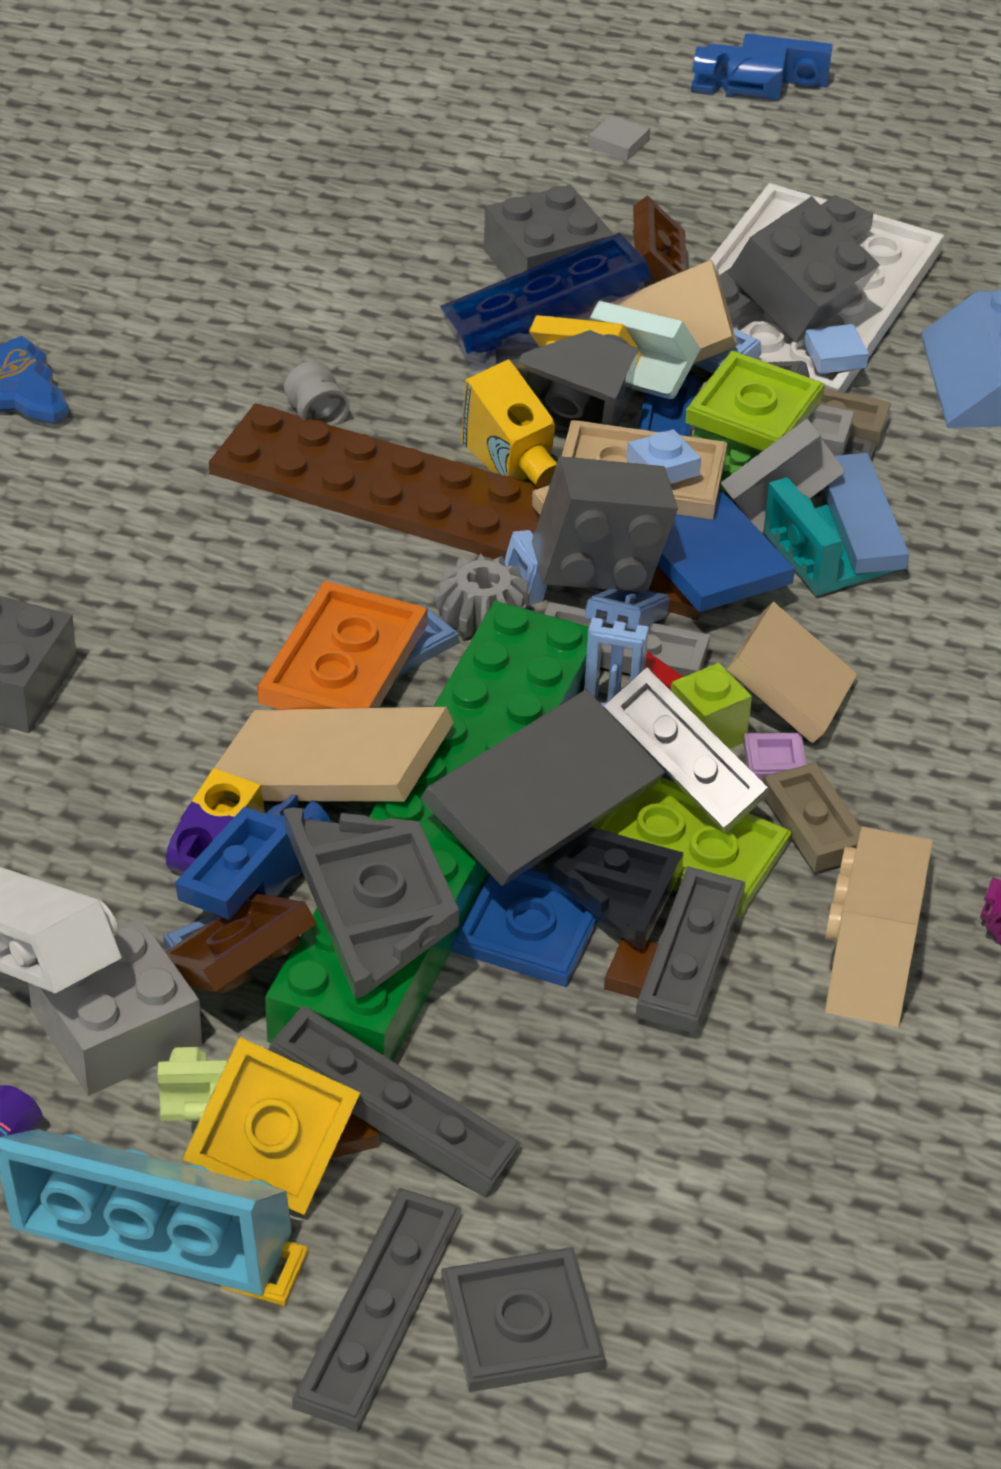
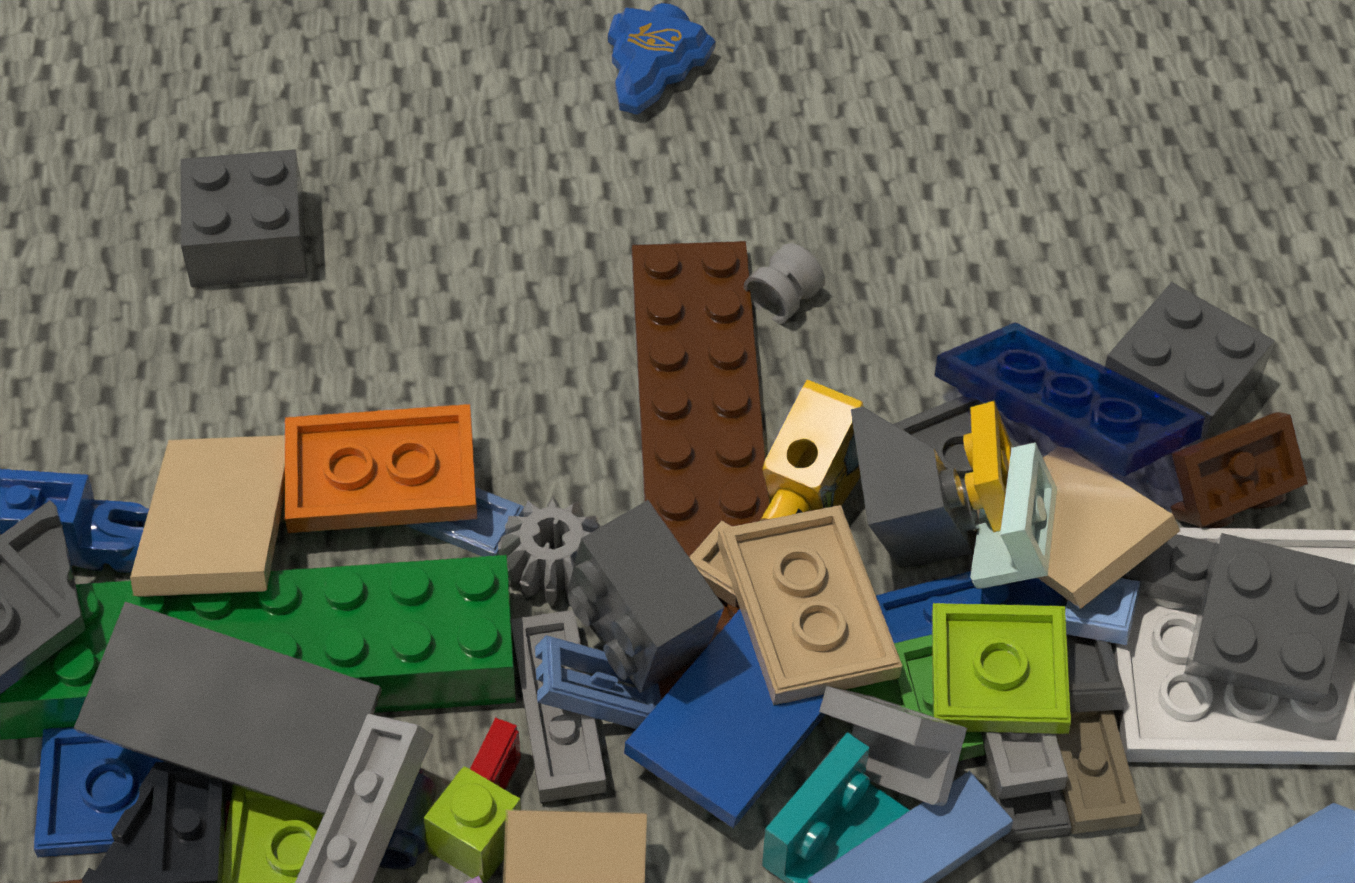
camera: 65 degrees right, 10 degrees up
(209, 815) = (117, 465): leg -> none
(618, 639) = (465, 701): light blue tile -> none
(666, 450) = (808, 612): light blue plate -> none
(836, 348) = (1188, 716): light blue tile -> none

